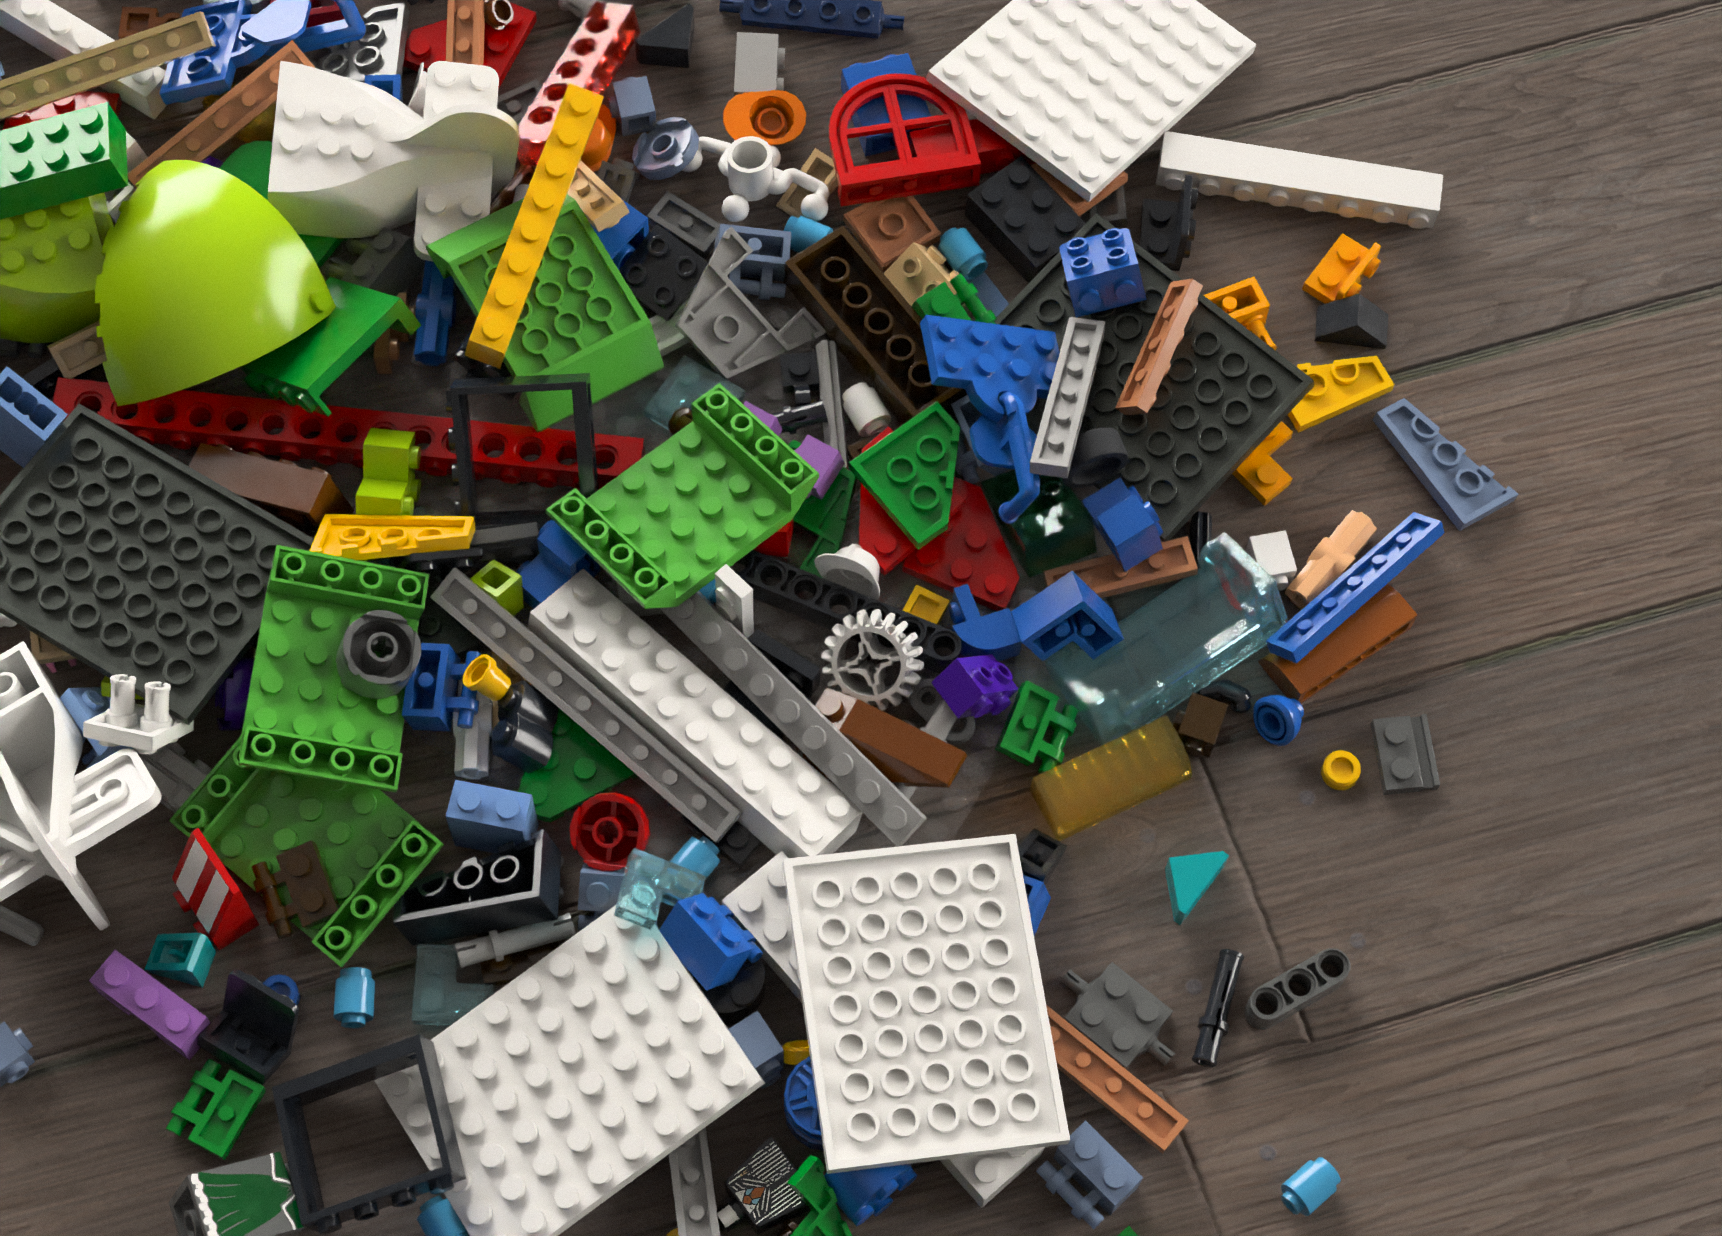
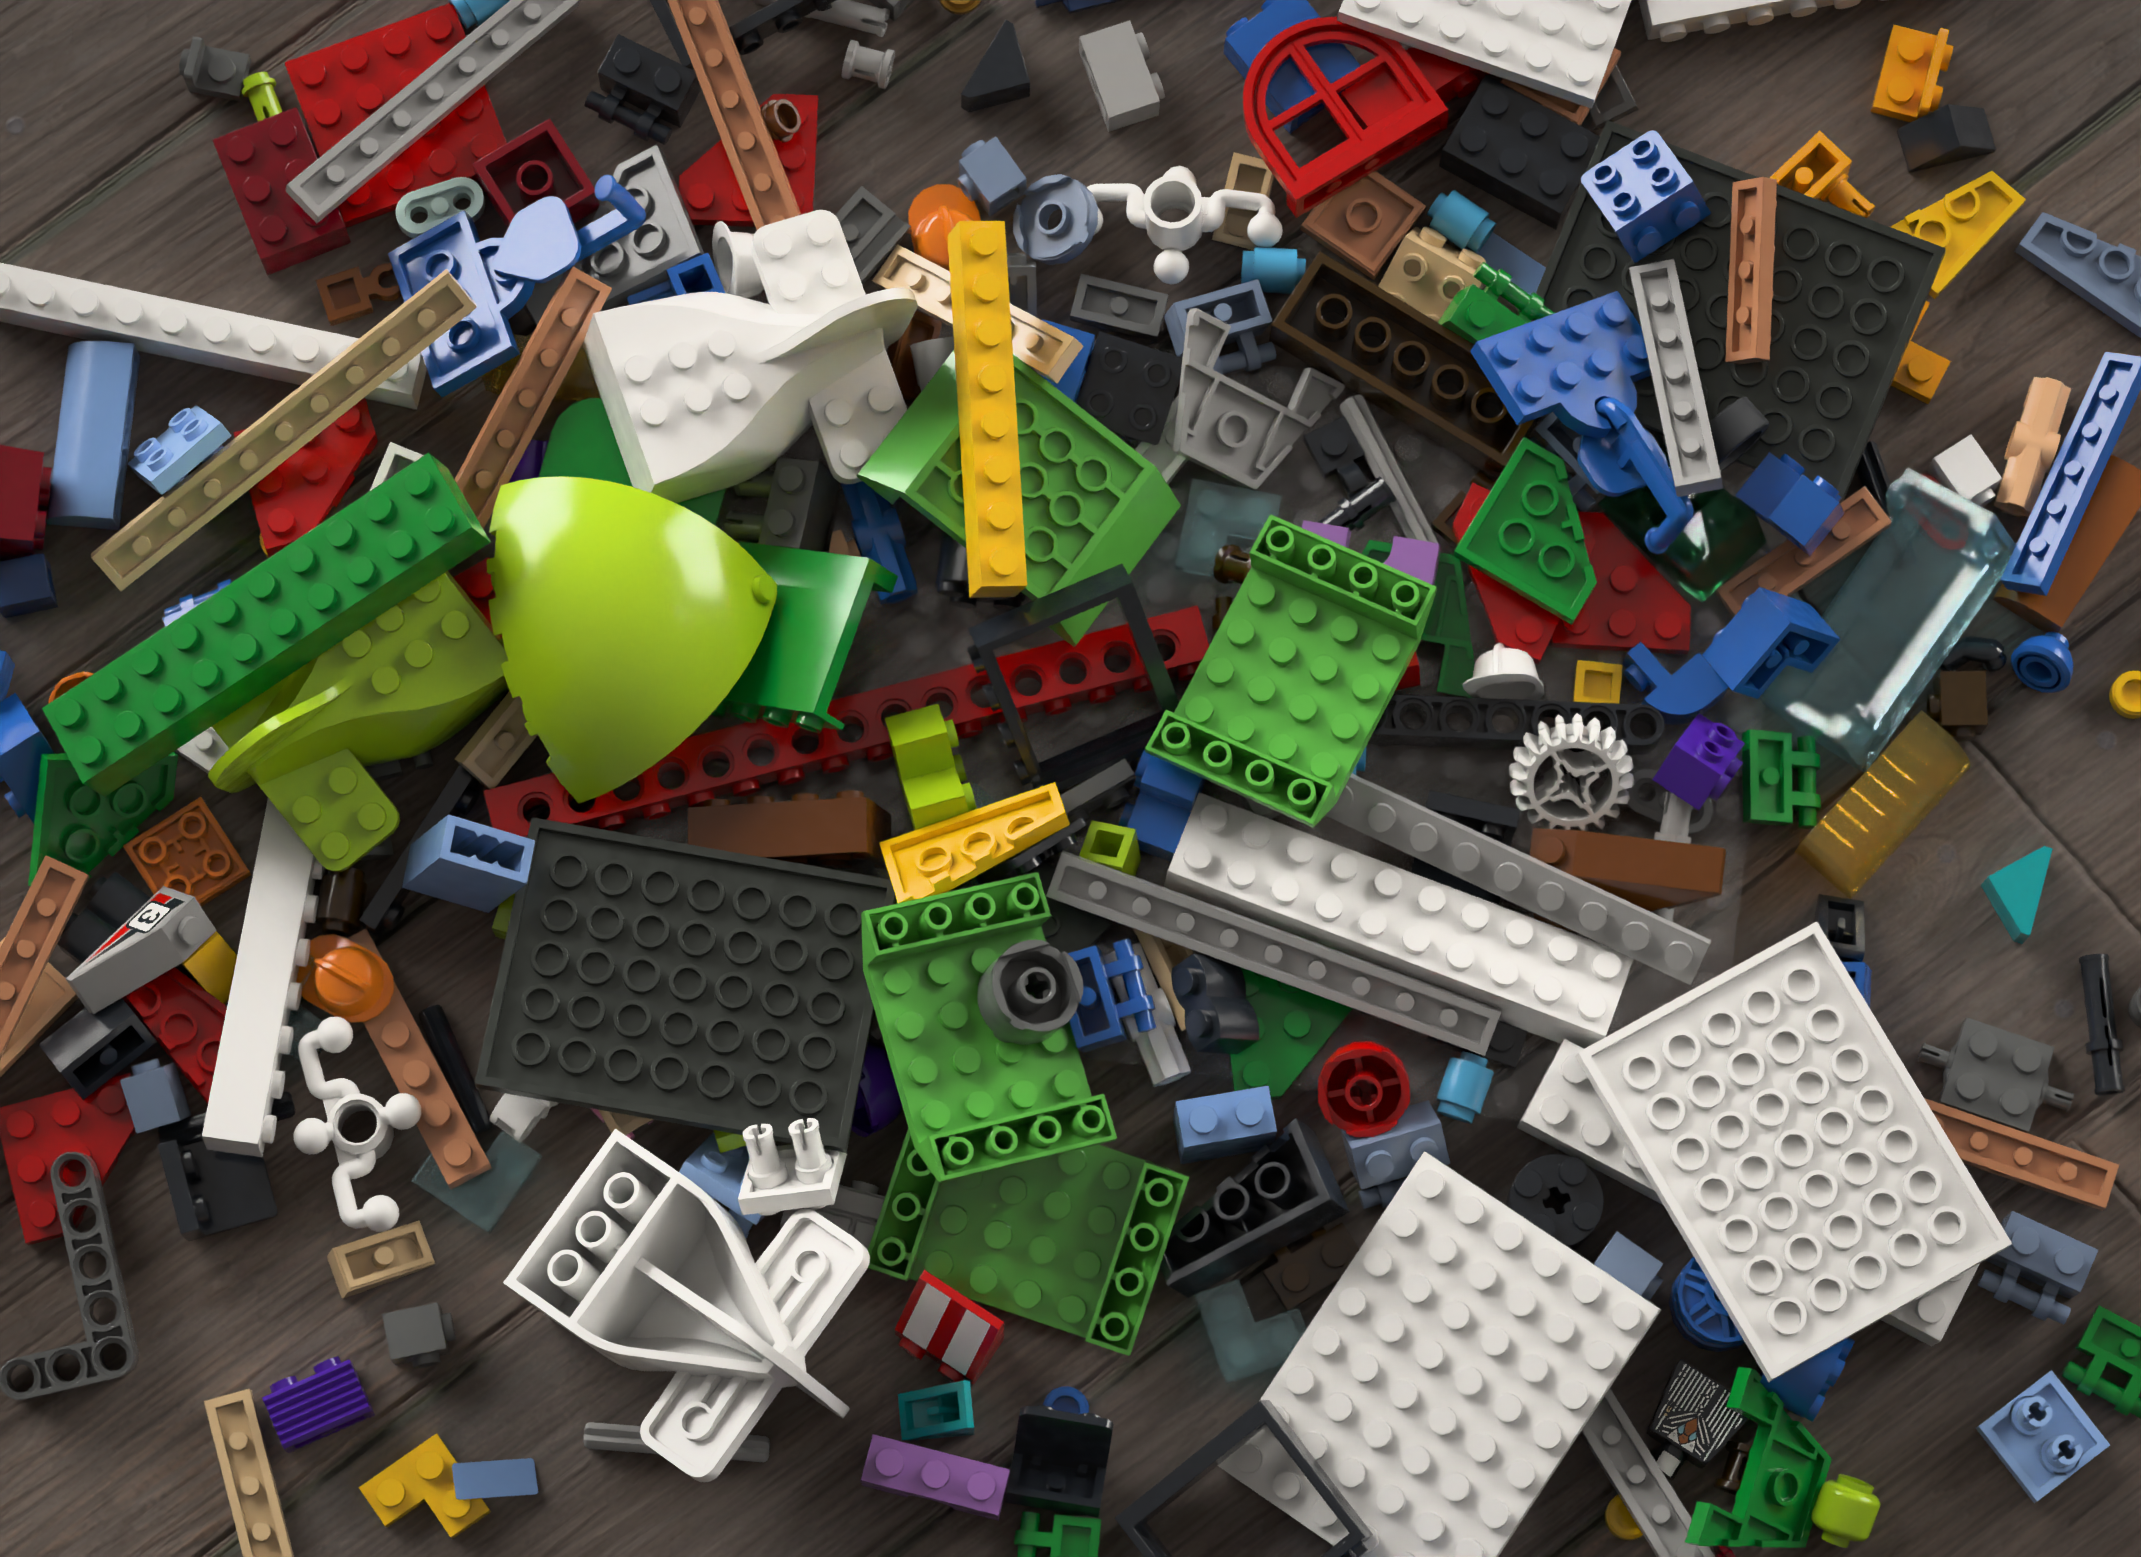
camera: 20 degrees left, 10 degrees up
(307, 884) = (1049, 1278): dark brown plate -> none
(354, 997) = (1153, 1381): dark azure brick -> none
(486, 678) = (1151, 967): yellow piece -> none
(514, 940) = (1292, 1263): light grey pin -> none
(587, 62) = (922, 151): clear red brick -> none
(652, 881) = (1439, 1132): clear light blue plate -> none
(708, 940) = (1532, 1174): blue brick -> none
(735, 600) = (1393, 768): white plate -> none
(765, 114) = (1160, 138): orange piece -> none
(795, 1051) = (1671, 1251): yellow tile -> none
(865, 409) = (1434, 468): white brick -> none
(1169, 226) = (1689, 97): black bracket -> none

